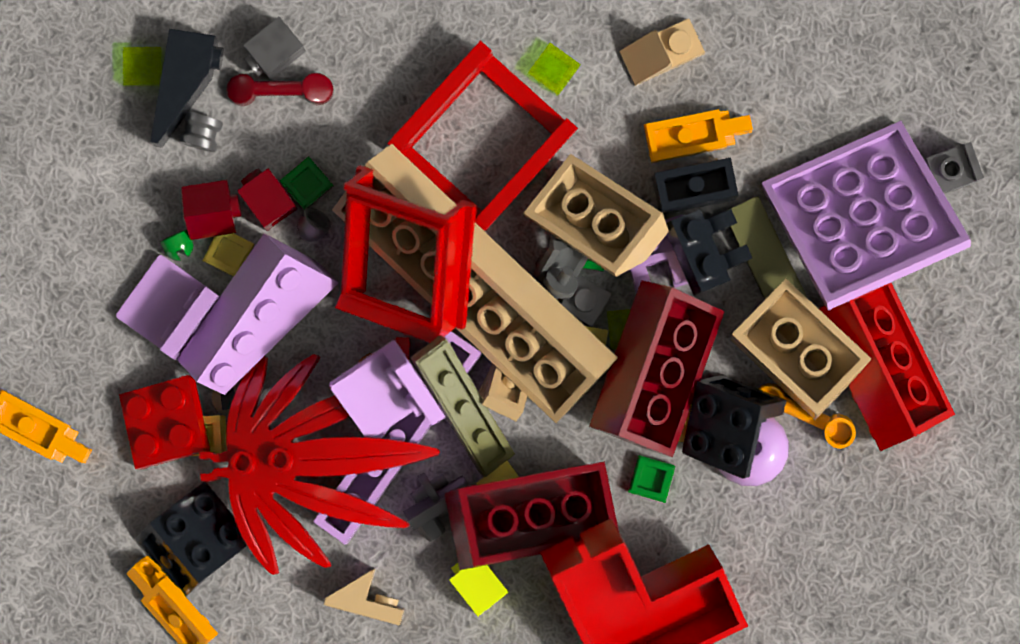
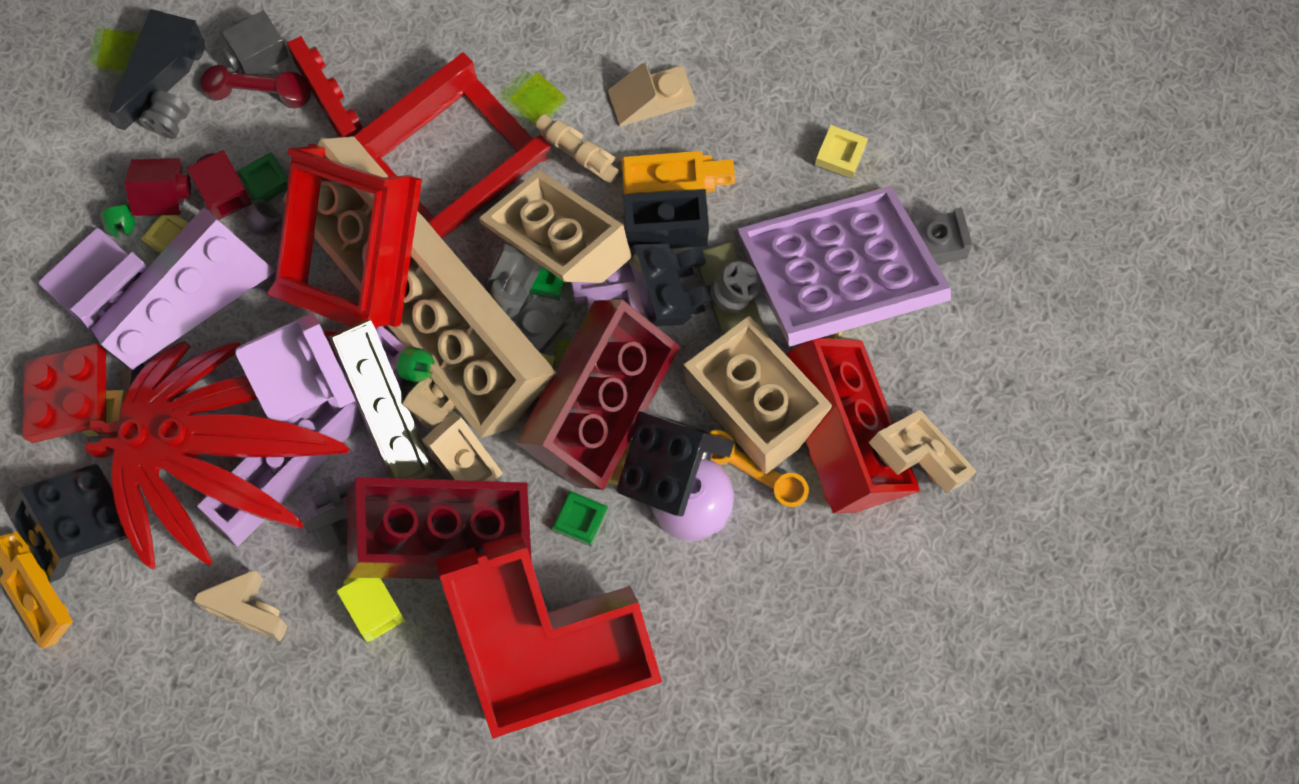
camera: 10 degrees right, 15 degrees down
(352, 90) = (324, 90): none -> red plate
(487, 364) = (415, 364): none -> green hinge
(539, 439) = (459, 452): none -> tan slope
(617, 131) = (585, 153): none -> tan plate
(769, 238) = (735, 278): none -> flat silver wheel
(850, 90) = (841, 151): none -> light yellow plate
(953, 373) = (921, 442): none -> tan plate

